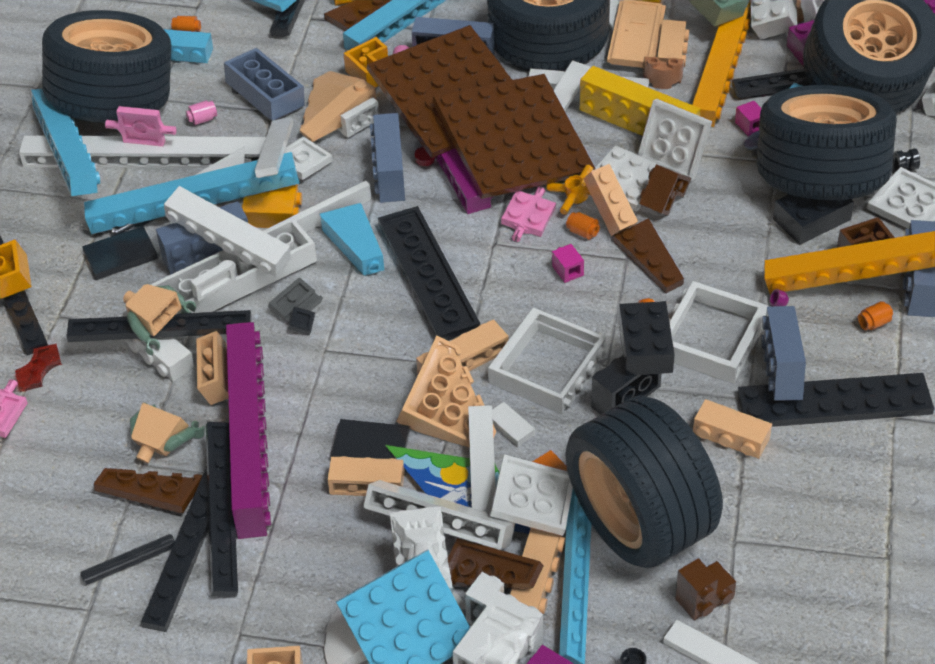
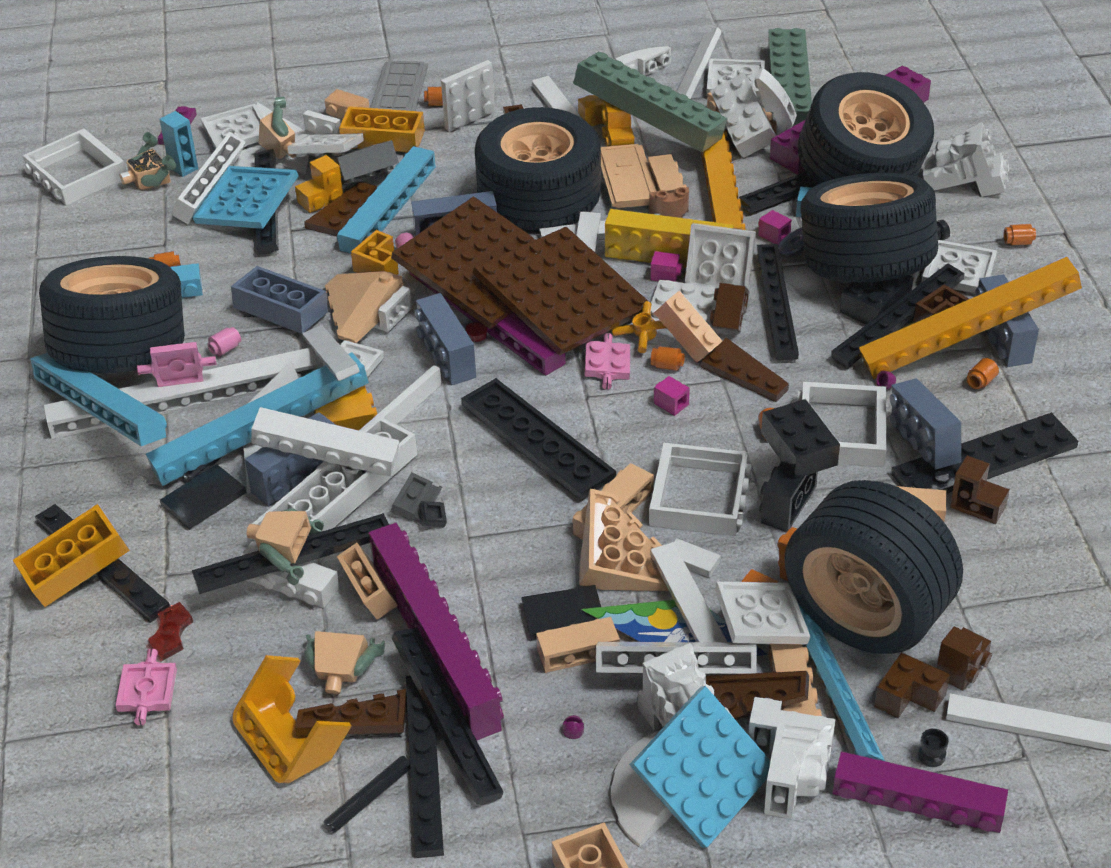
camera: 20 degrees left, 5 degrees down
(75, 469) = (270, 729): none -> light orange windscreen
(213, 280) = (331, 493): white tile -> none
(325, 553) = (573, 727): none -> magenta hinge
(354, 237) = (446, 422): medium azure slope -> none
(626, 134) = (666, 266): none -> dark pink brick
(641, 597) = (911, 681): none -> reddish brown brick
(714, 194) = (777, 302): none -> black plate
(801, 435) = (975, 494): none -> reddish brown brick
(821, 235) = (894, 316): none -> black plate

